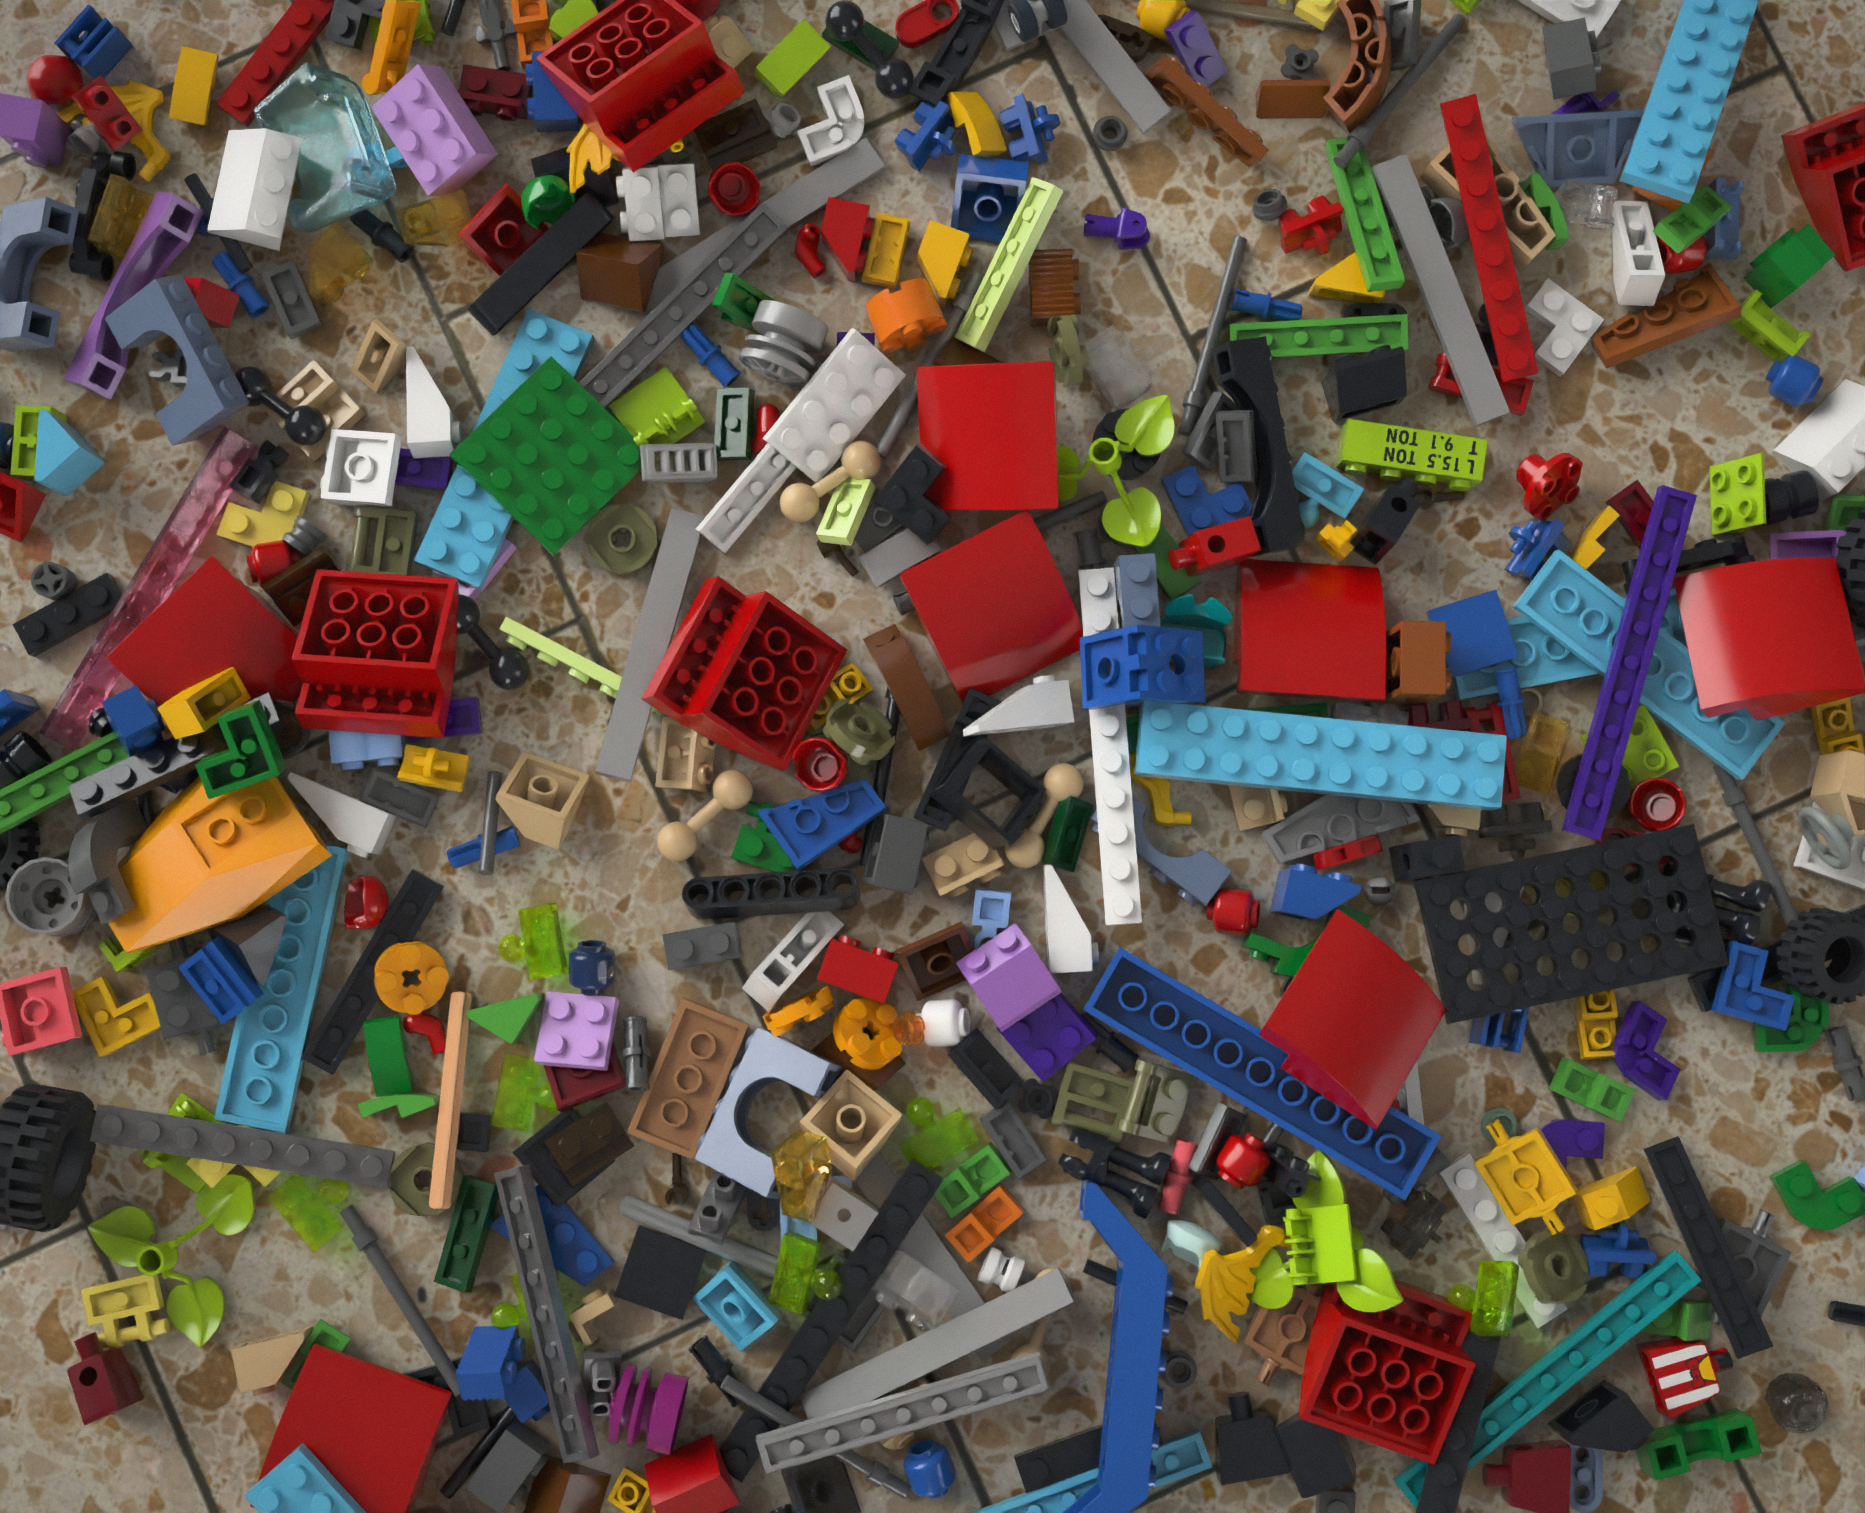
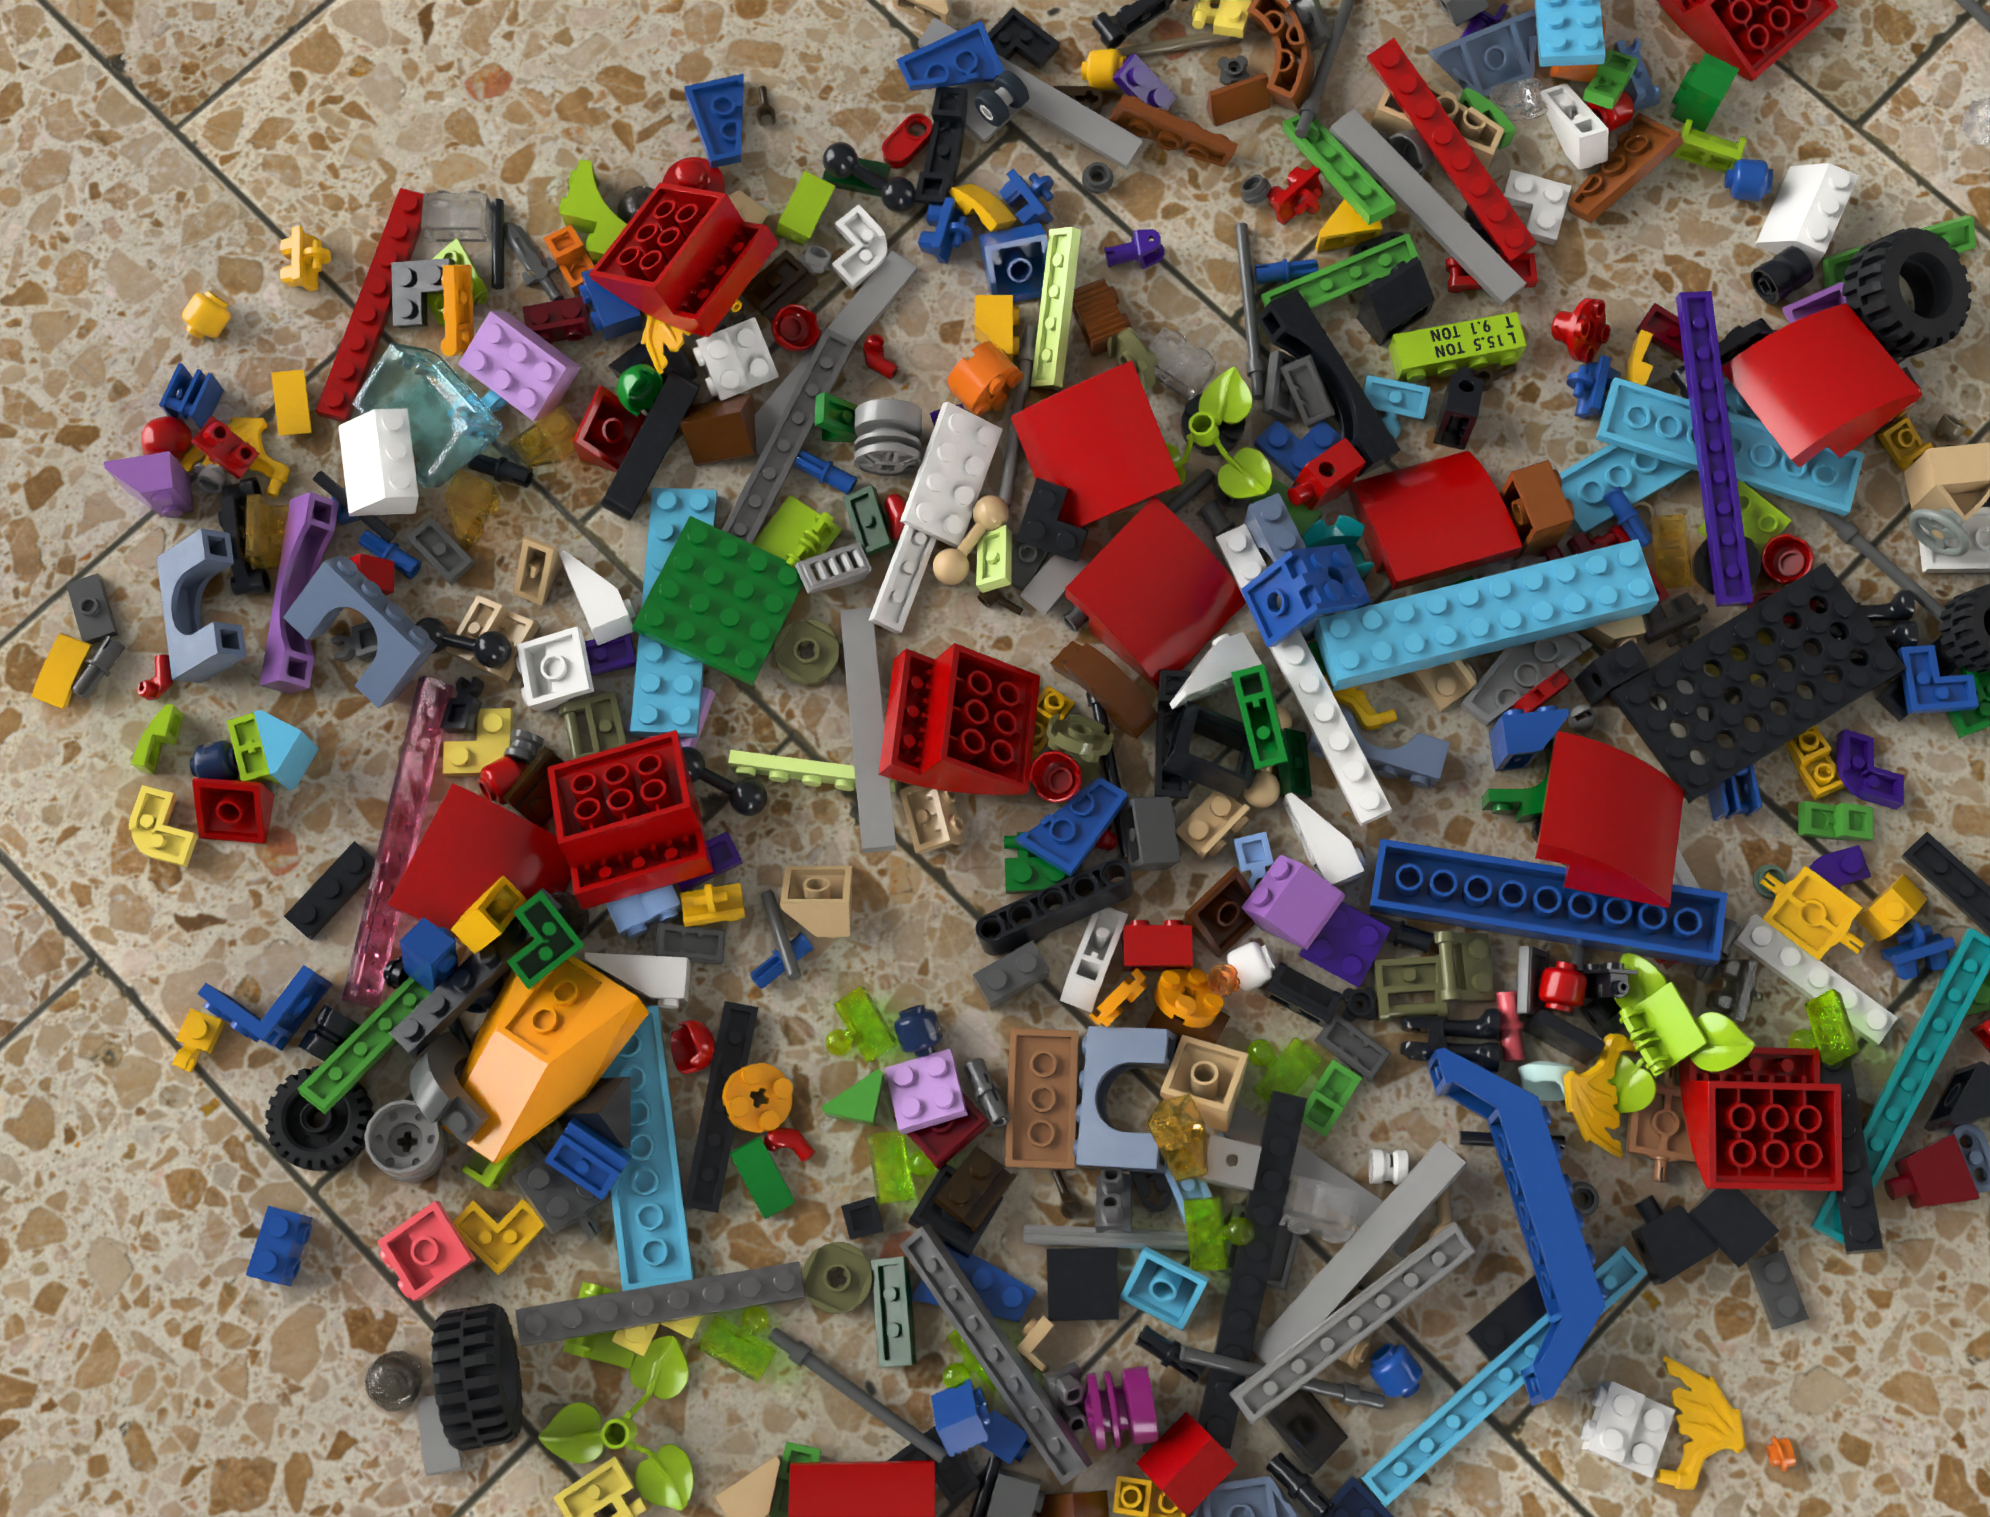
camera: 15 degrees left, 10 degrees down
(46, 577) = (303, 859): dark grey wheel -> none
(406, 1102) = (798, 1211): bright green slope -> none
(450, 1101) = (835, 1196): light nougat axle -> none
(679, 839) = (954, 890): tan piece -> none
(844, 234) = (903, 333): red slope -> none
(886, 250) = (944, 334): yellow plate -> none
(984, 1222) = (1356, 1131): orange slope -> none
(1047, 779) = (1260, 716): none -> green slope
(1234, 911) = (1465, 778): red head -> none
(1336, 540) = (1424, 439): yellow plate -> none
(1477, 633) = (1580, 468): blue tile -> none
(1538, 1270) = (1874, 998): olive plate -> none
(1738, 495) = (1743, 285): lime hinge -> none

